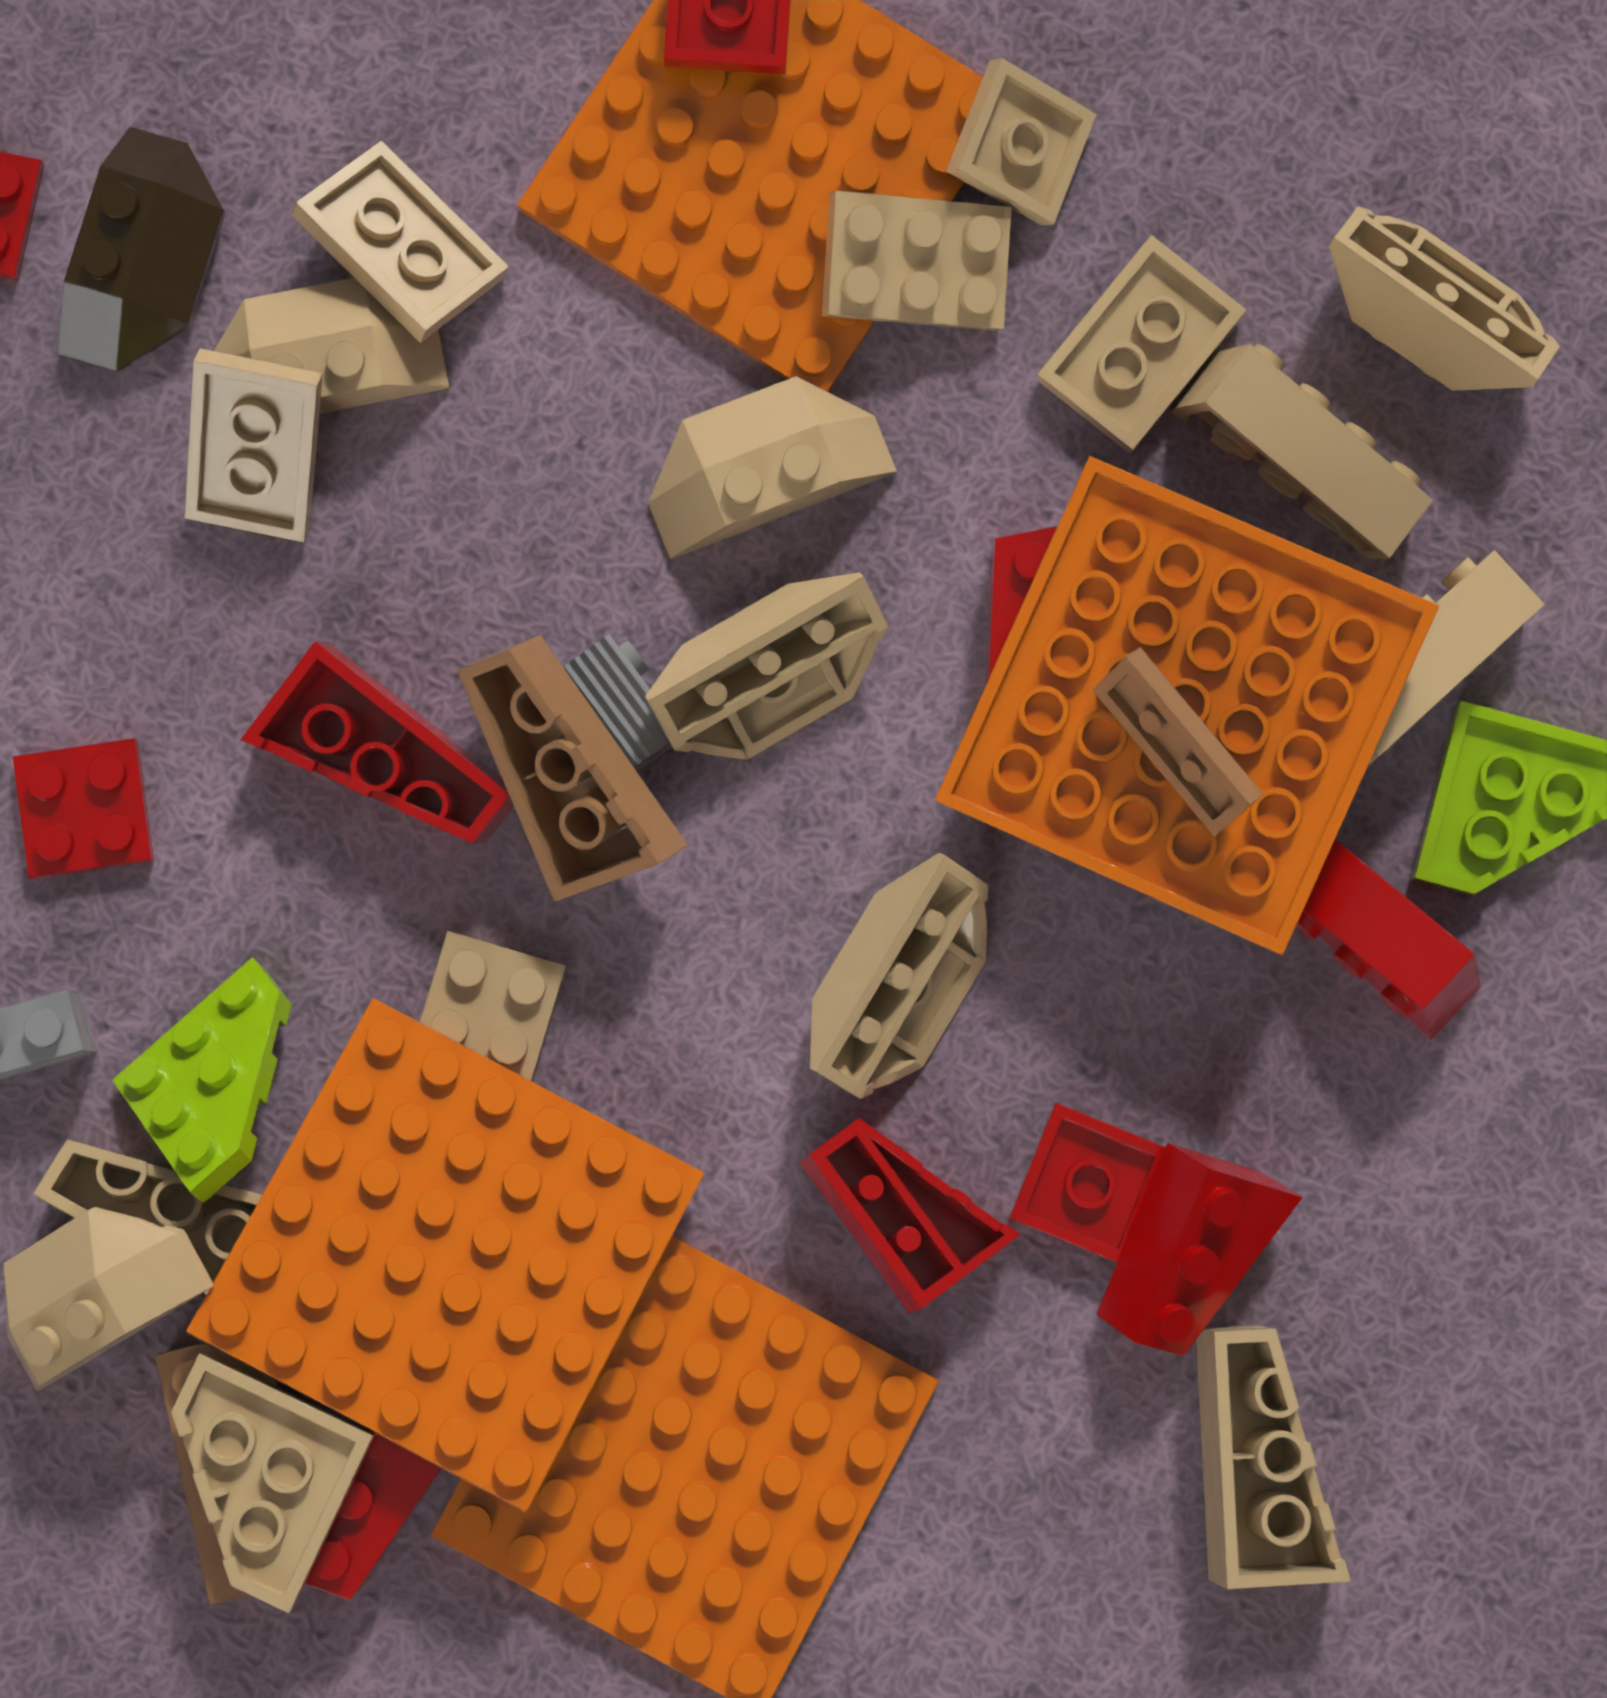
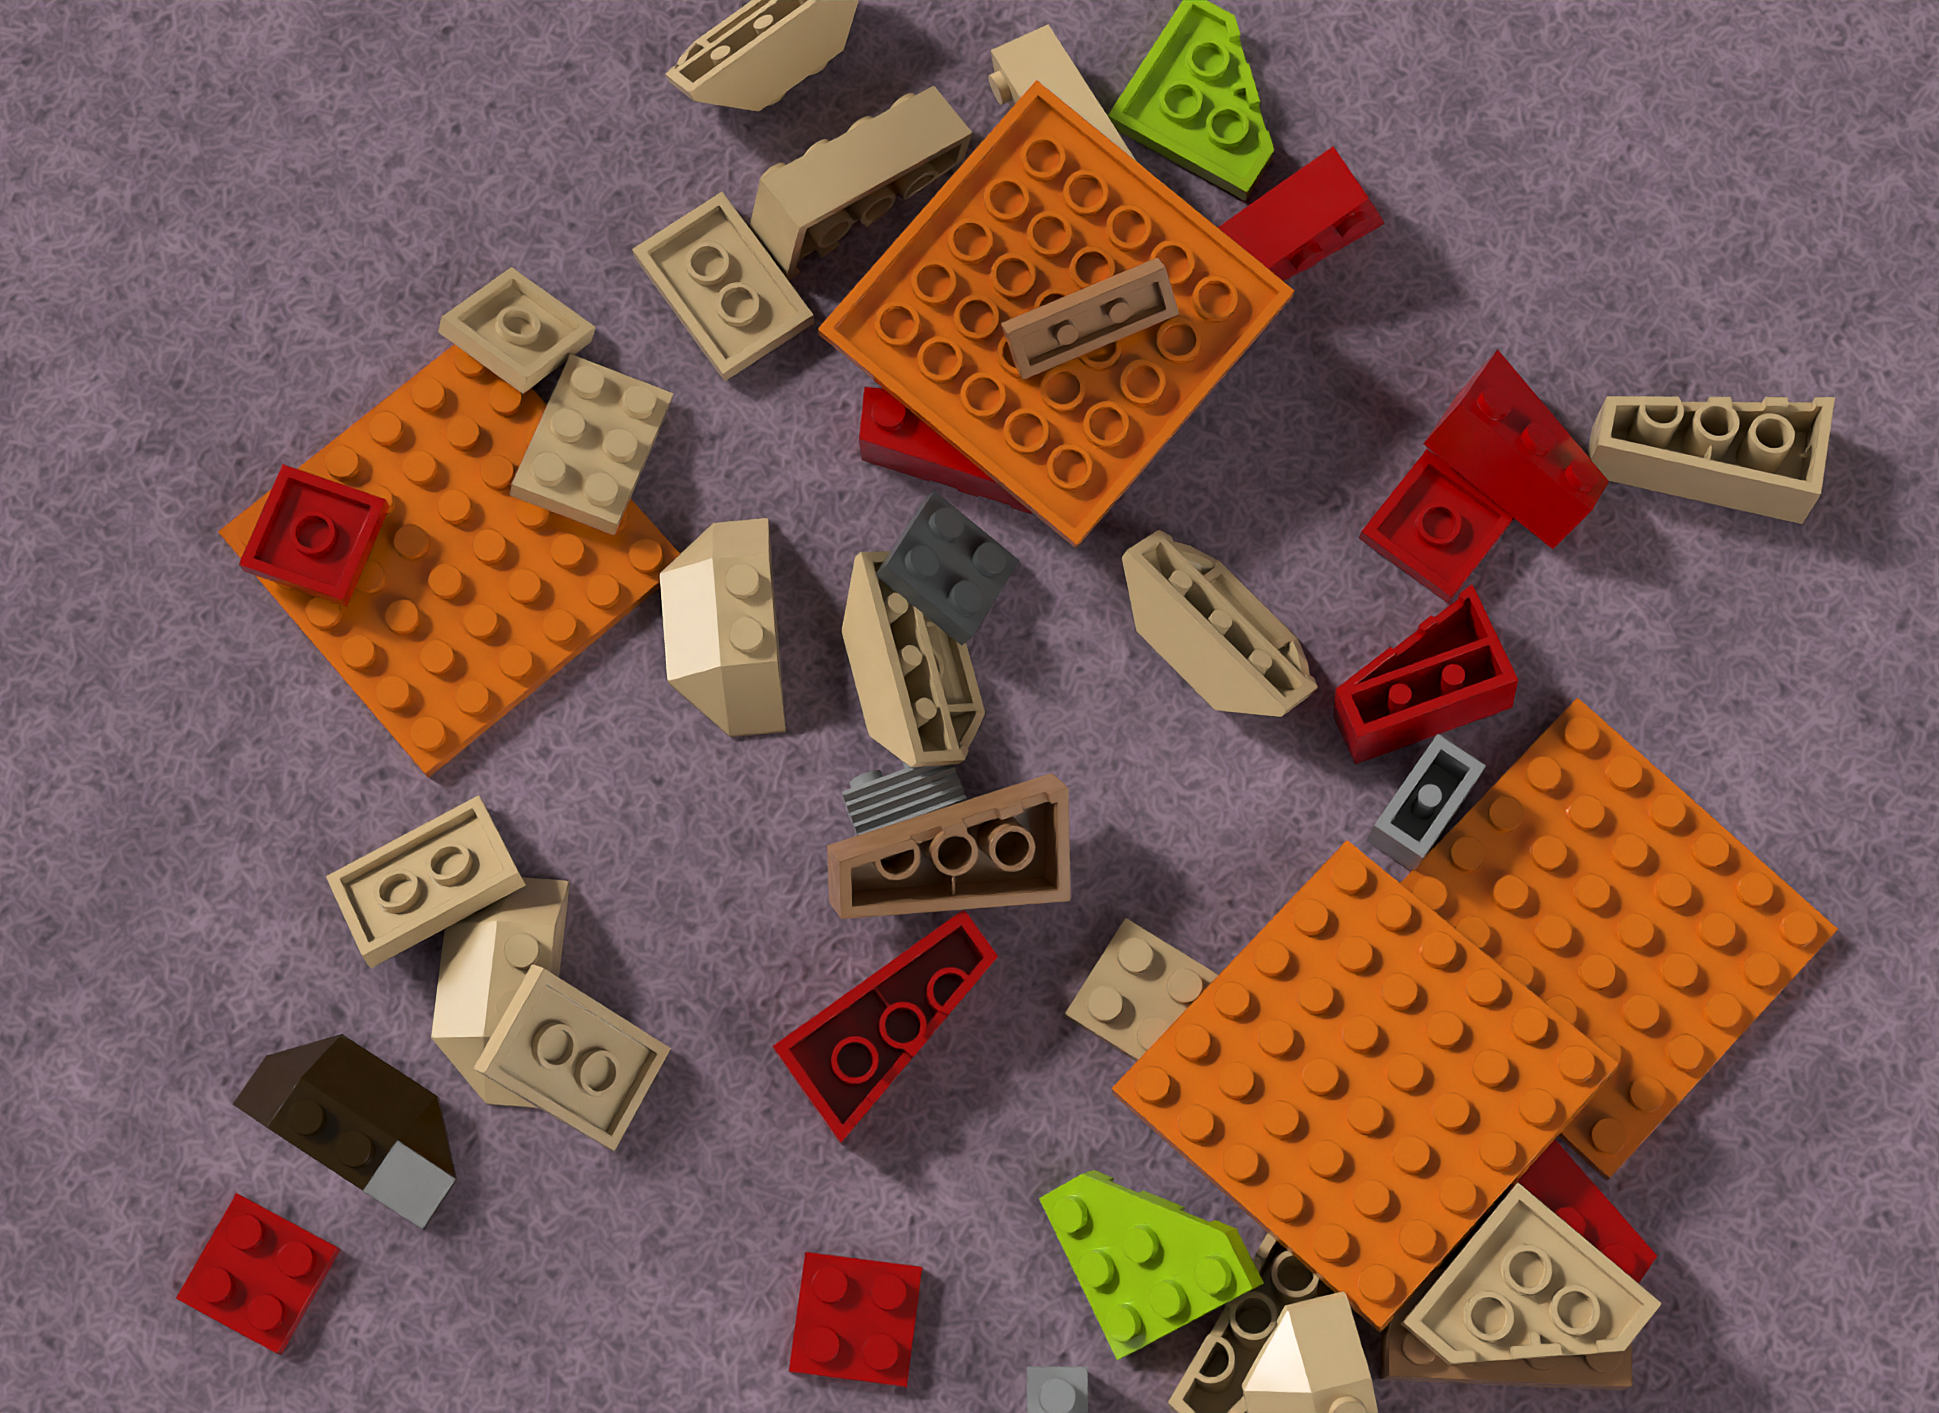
camera: 70 degrees left, 10 degrees down
(769, 1246) = (1425, 803): none -> light grey brick
(883, 673) = (947, 568): none -> dark grey plate

